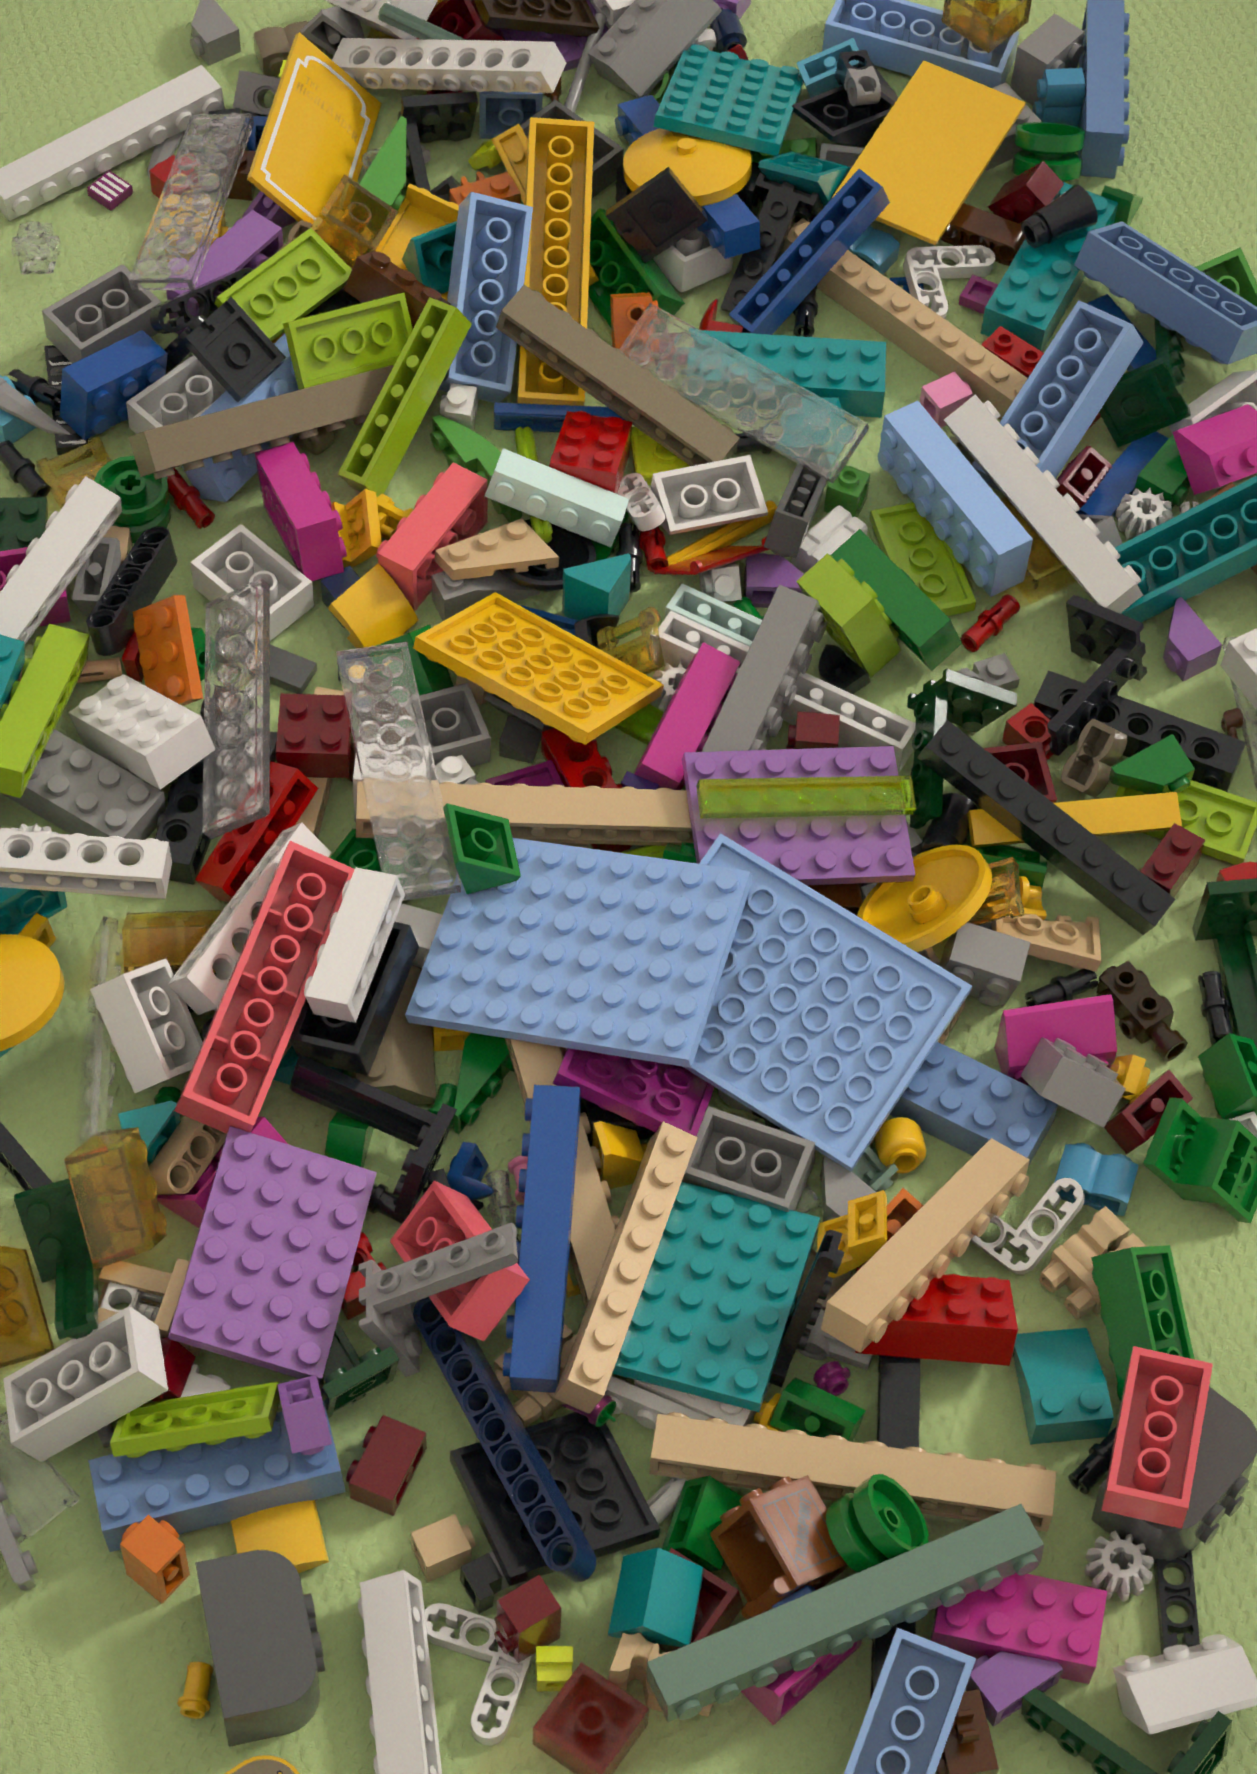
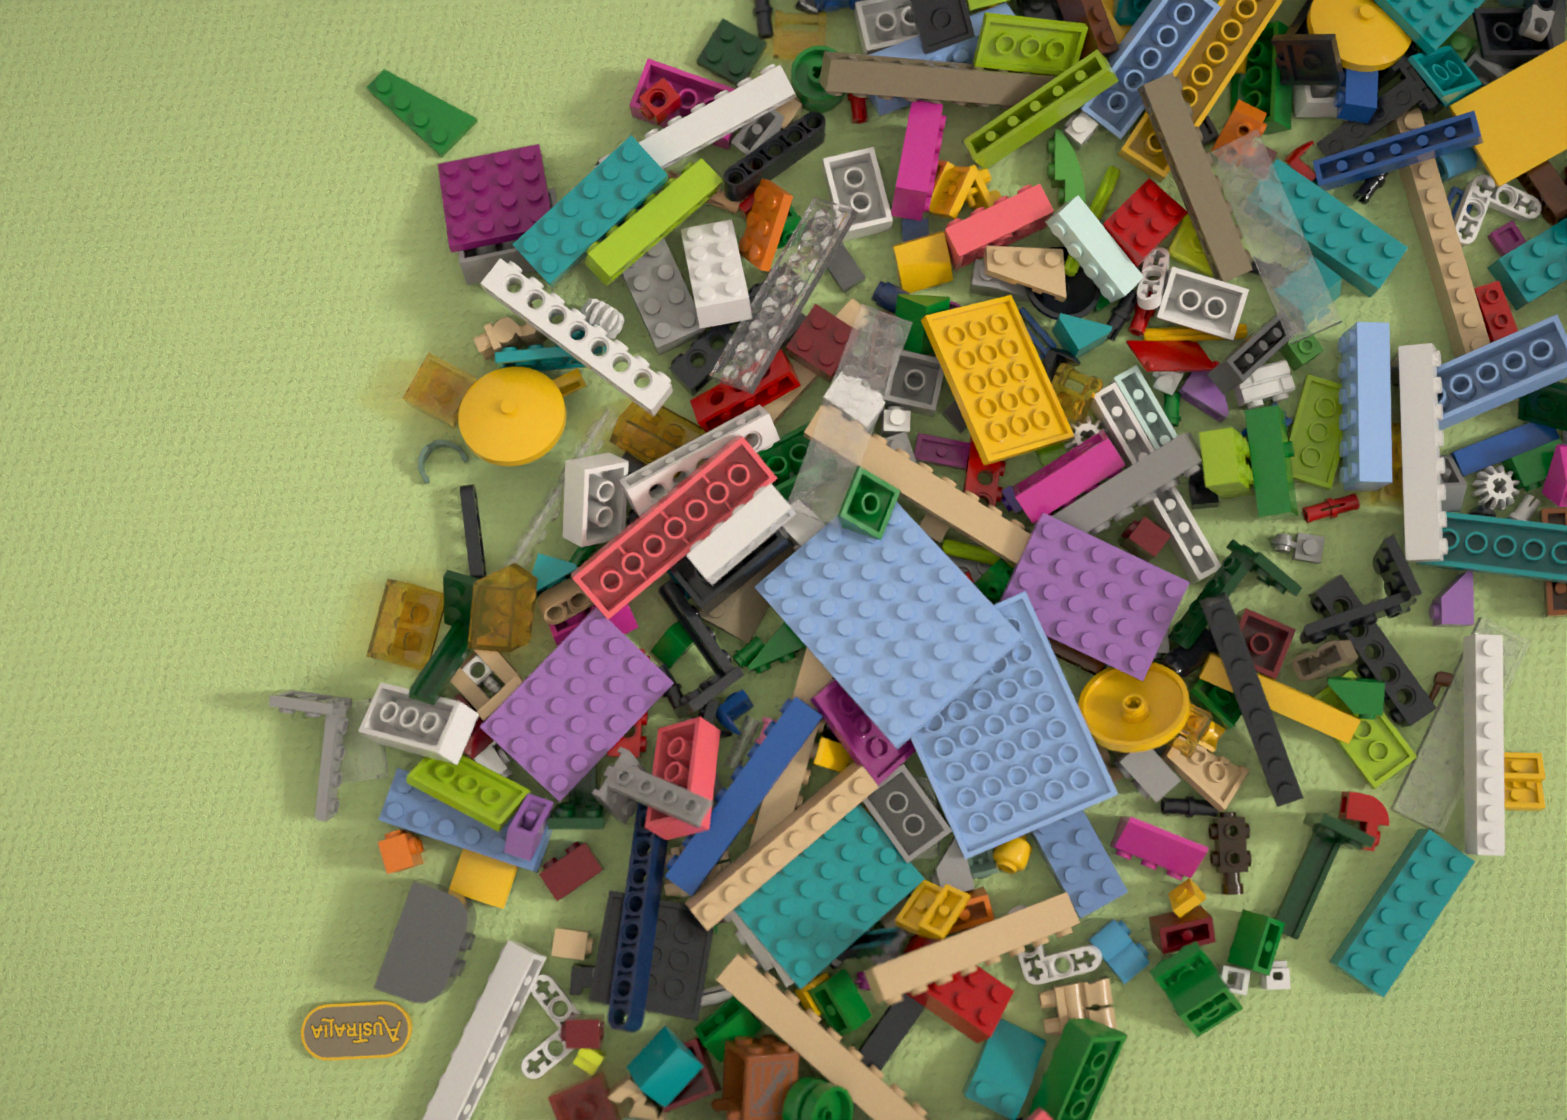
camera: 35 degrees right, 25 degrees up
(196, 1690) = (381, 943): yellow pin -> none
(540, 416) = (1137, 170): blue tile -> none
(805, 797) = (1101, 594): clear neon green plate -> none
(944, 396) = (1422, 313): bright pink brick -> none
(1028, 724) = (1305, 602): red brick -> none
(1073, 1080) = (1144, 887): light grey brick -> none
(1083, 475) = (1467, 438): dark red brick -> none
(1174, 859) = (1322, 764): dark red brick -> none
(1214, 1005) = (1280, 880): black pin -> none

